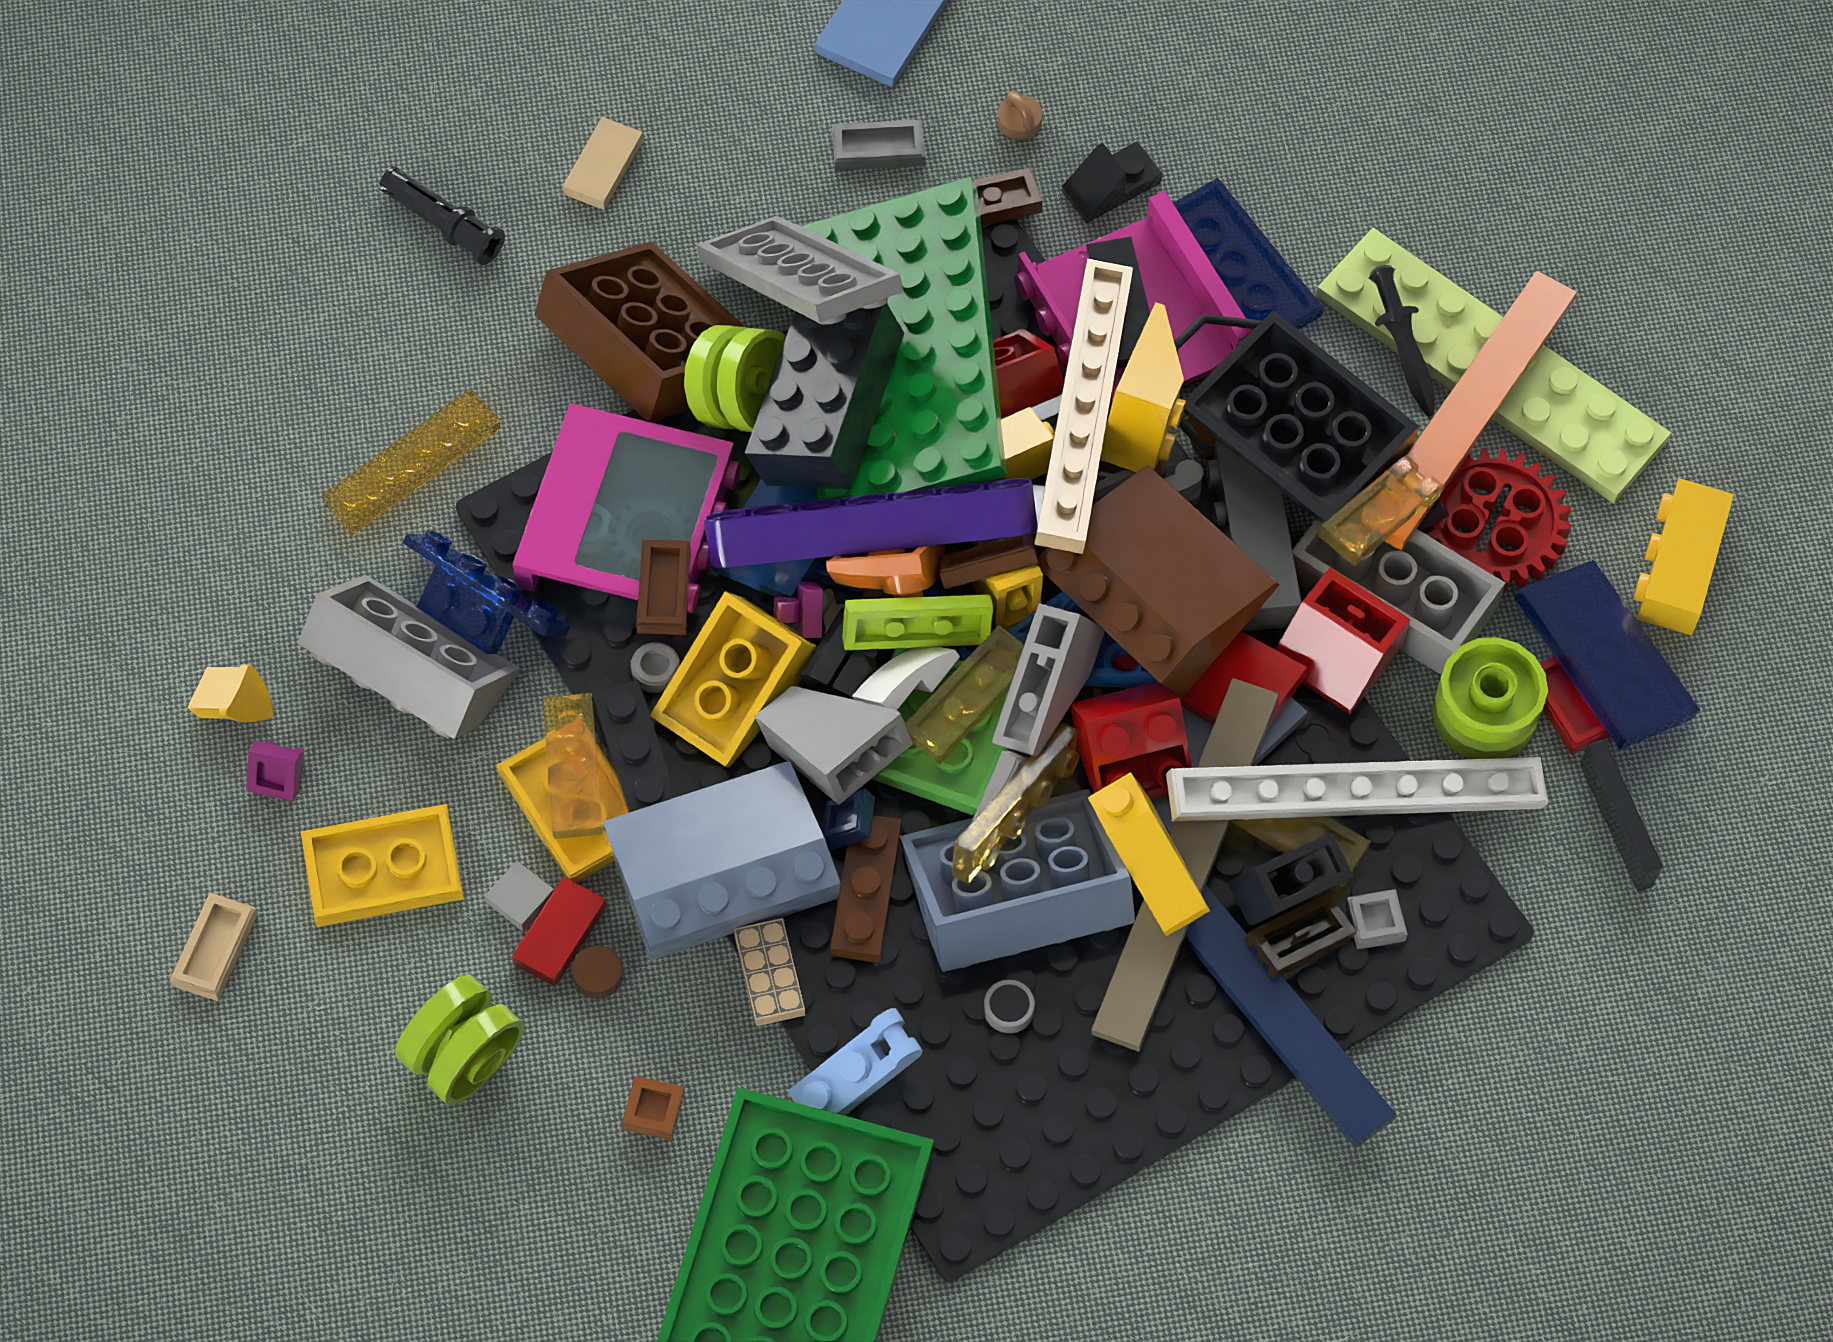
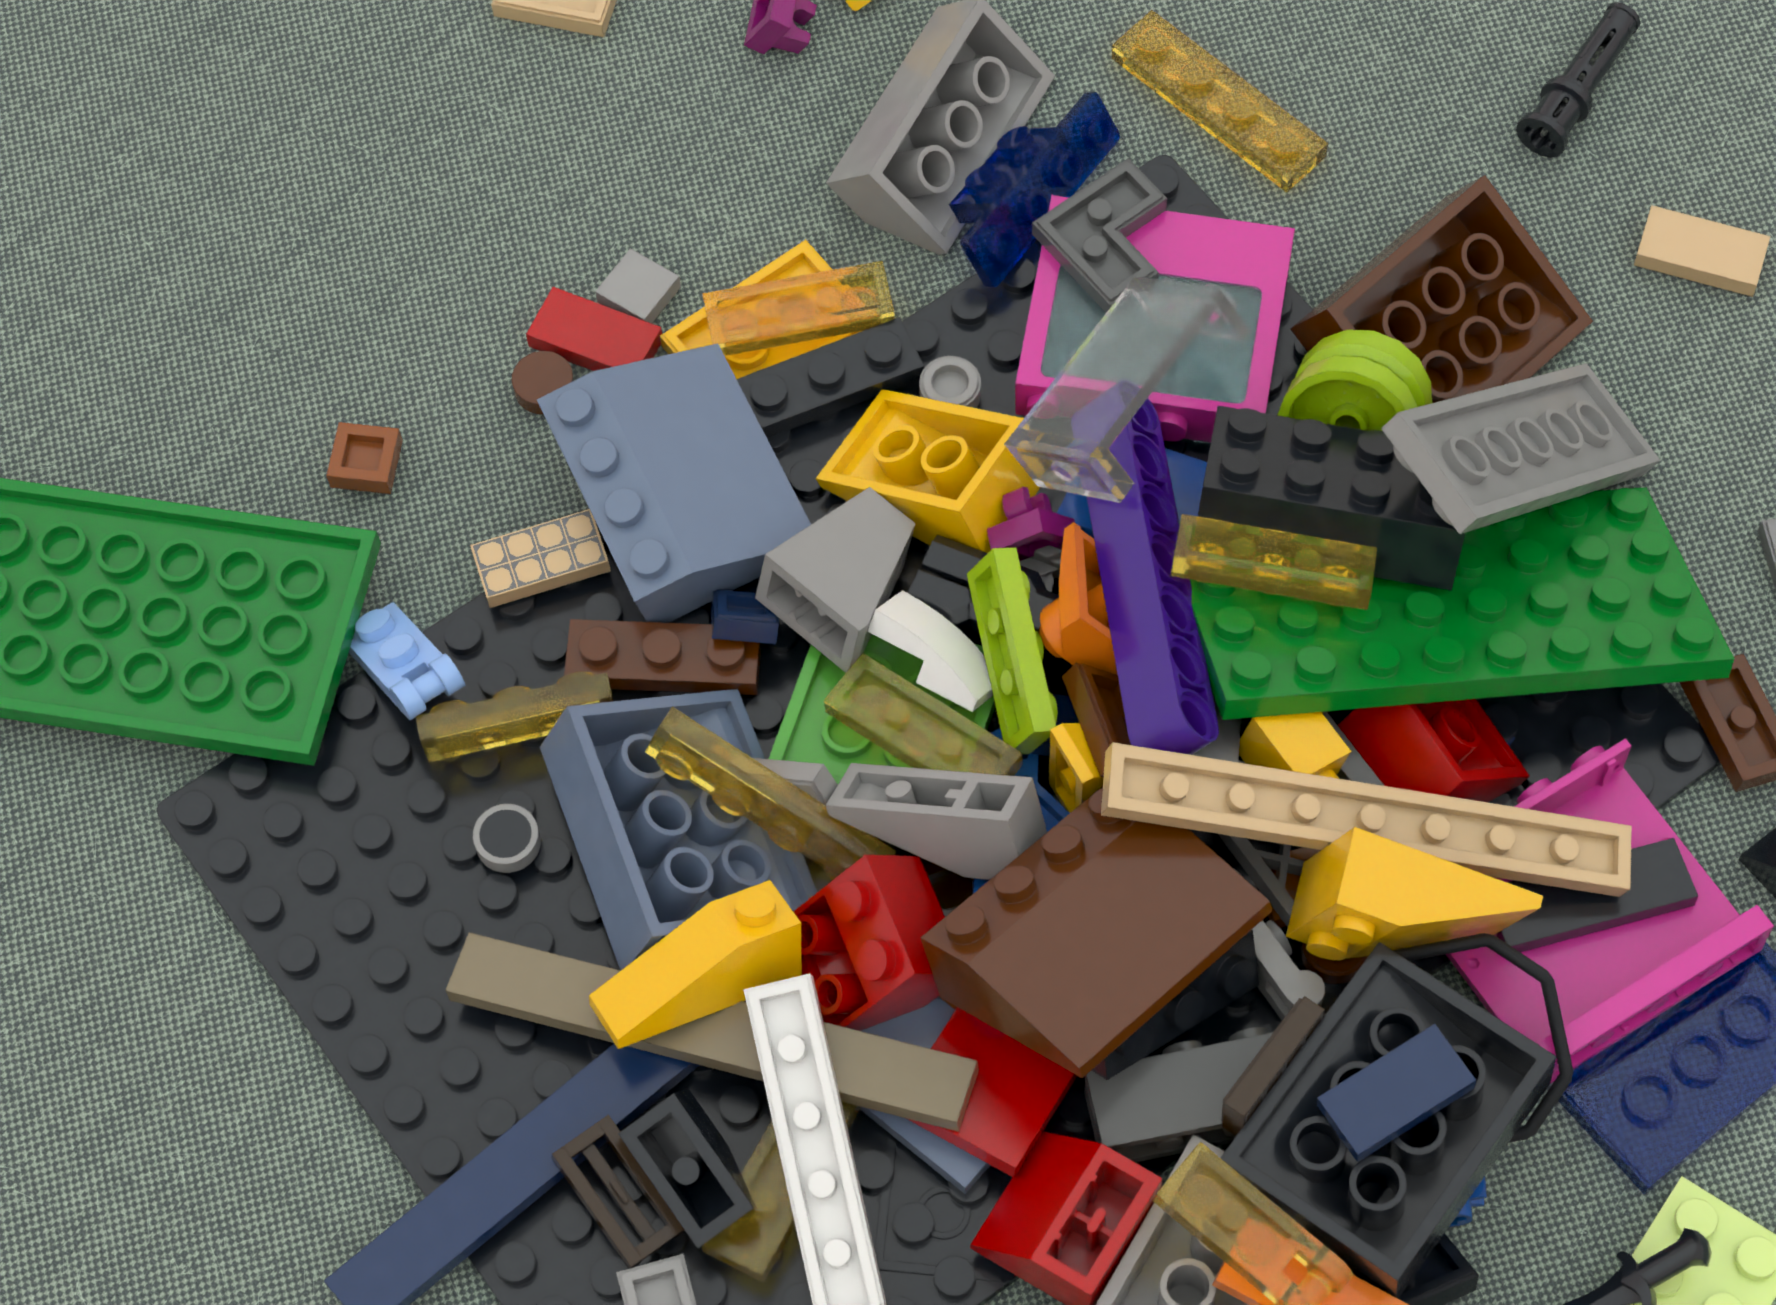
camera: 90 degrees right, 0 degrees up
(381, 865) = (669, 146): yellow tile -> none
(459, 1039) = (424, 230): lime wheel -> none
(559, 540) = (1092, 228): none -> dark grey tile
(663, 587) = (1023, 356): reddish brown tile -> none
(714, 515) = (1109, 378): none -> clear panel
(883, 430) = (1274, 562): none -> clear yellow plate
(911, 984) = (508, 718): none -> clear yellow plate
(1260, 485) = (1269, 1064): none -> dark brown tile
(1294, 404) = (1396, 1092): none -> dark blue tile

